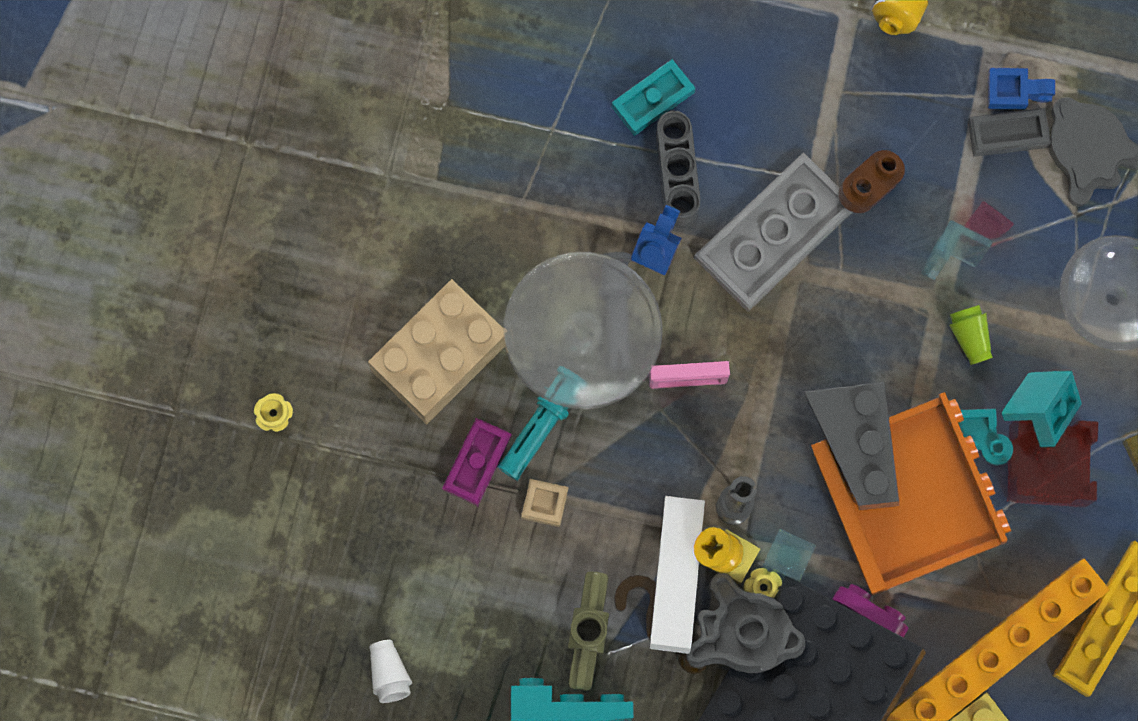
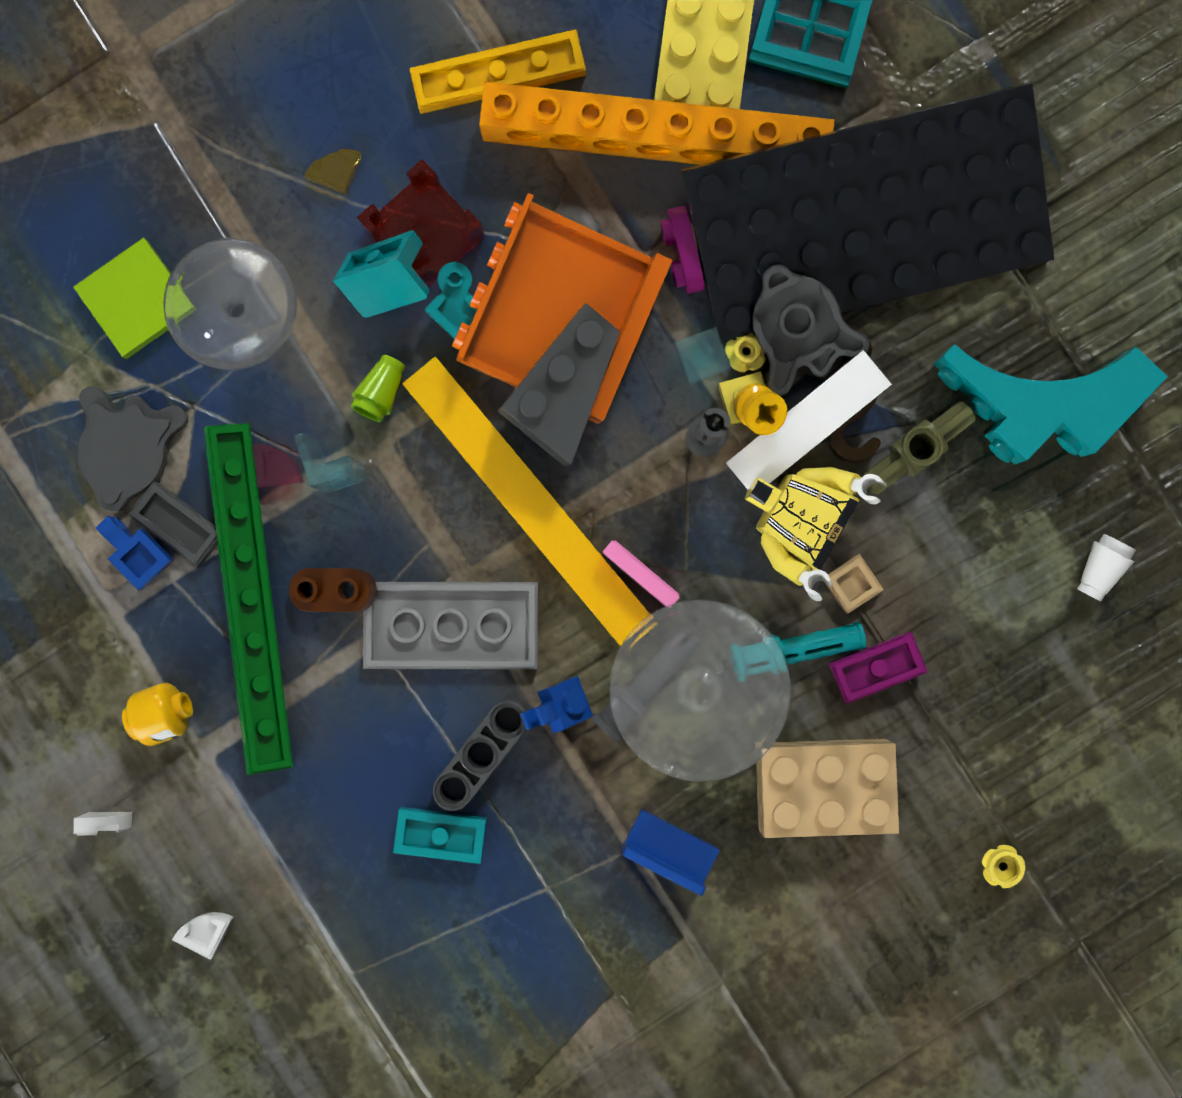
camera: 130 degrees left, 10 degrees up
(498, 220) = (669, 851): none -> blue panel
(617, 509) = (806, 519): none -> light yellow torso
(811, 355) = (526, 499): none -> yellow tile
(919, 128) = (248, 598): none -> green tile

